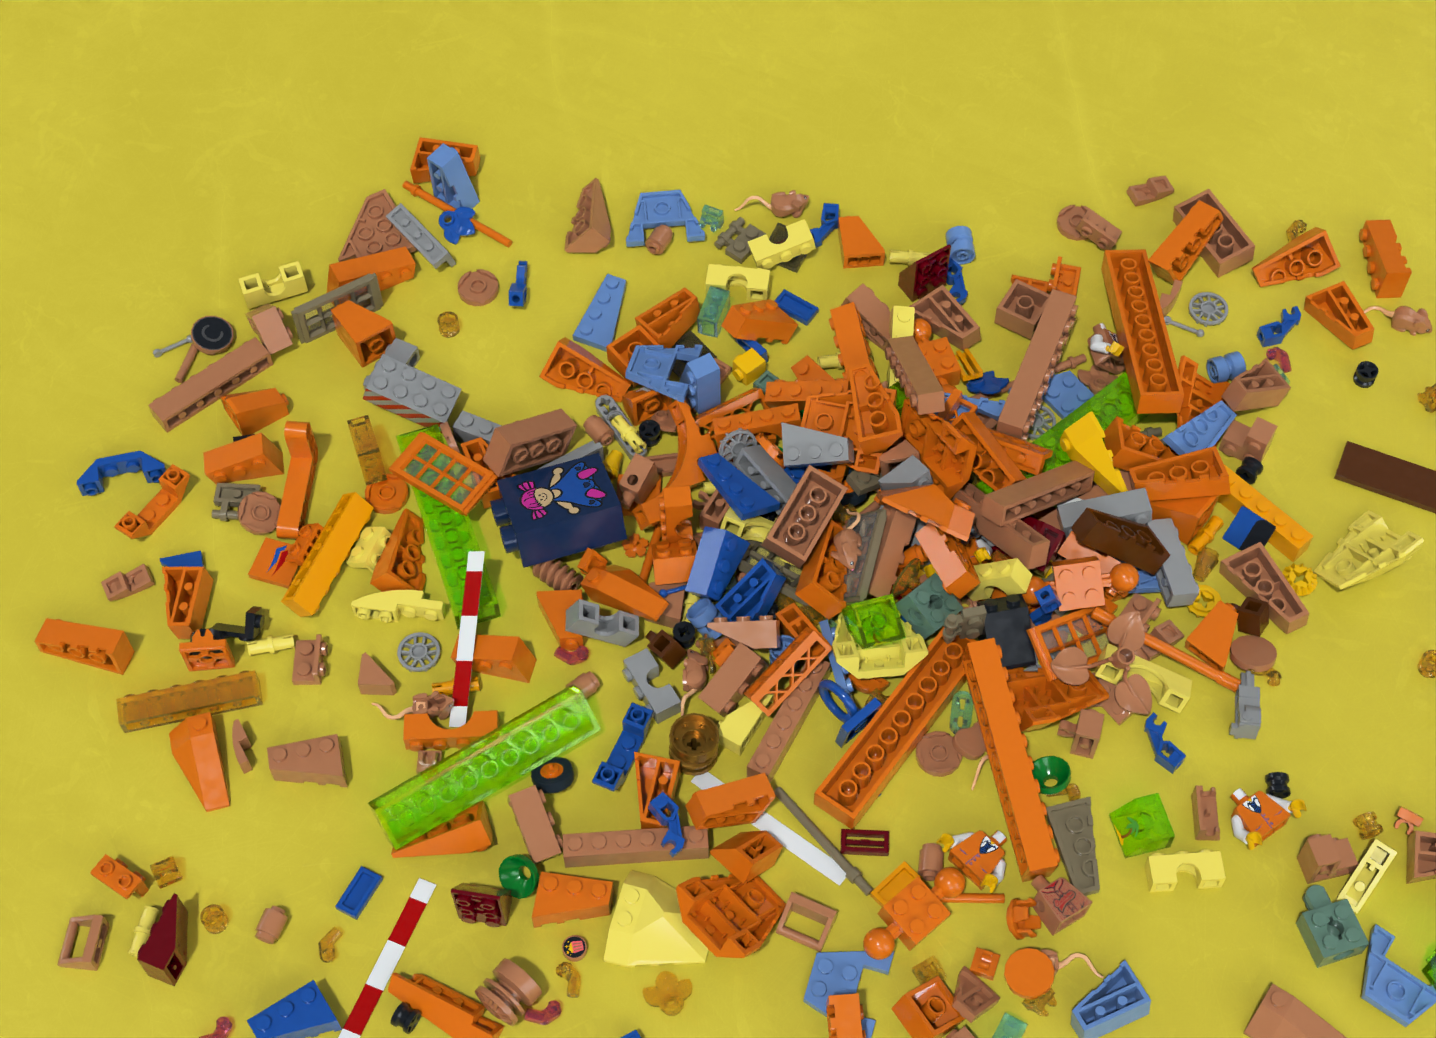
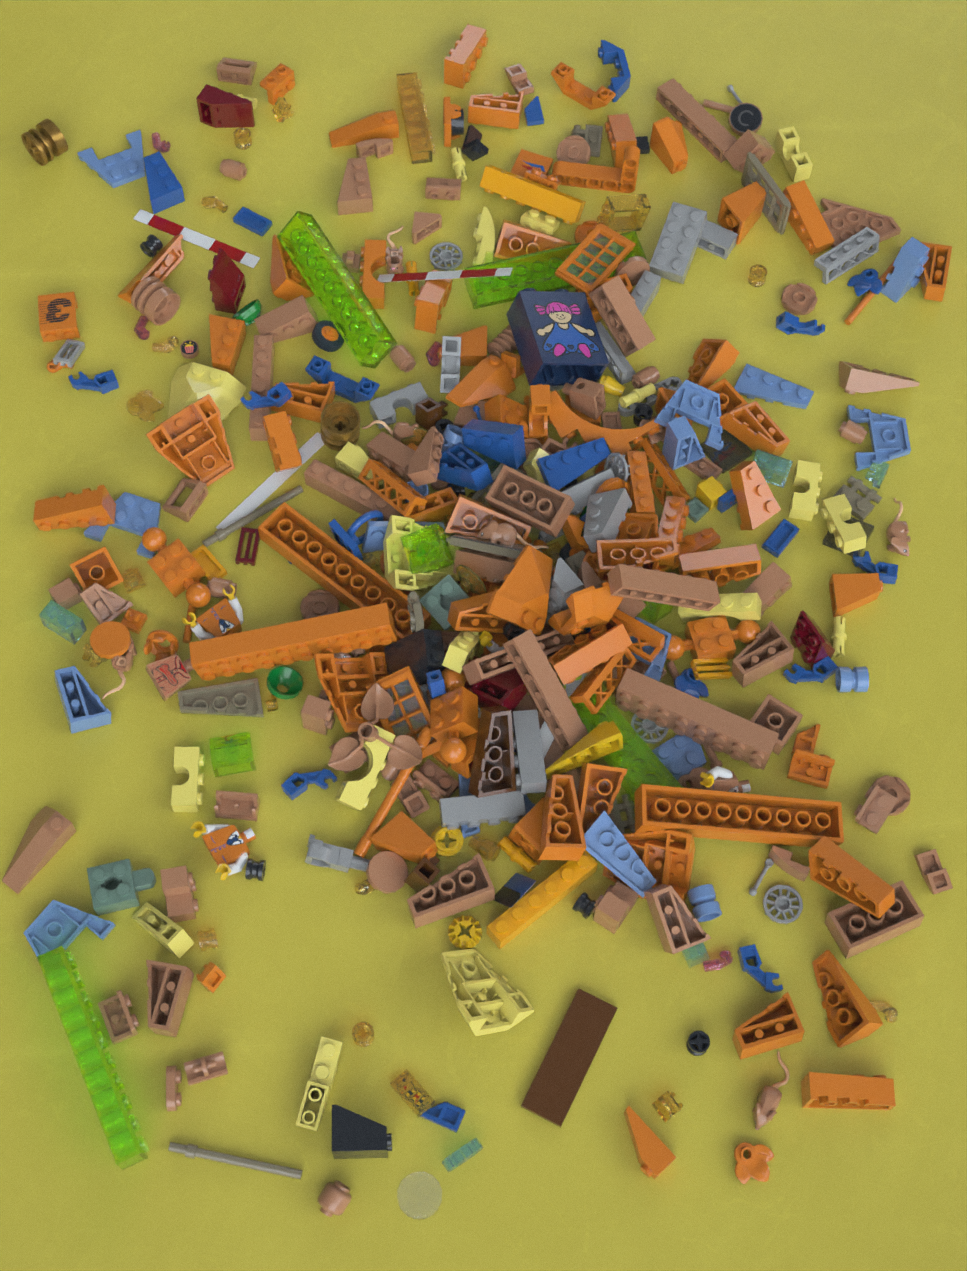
camera: 90 degrees right, 5 degrees up
(748, 854) = (242, 456): orange slope -> none

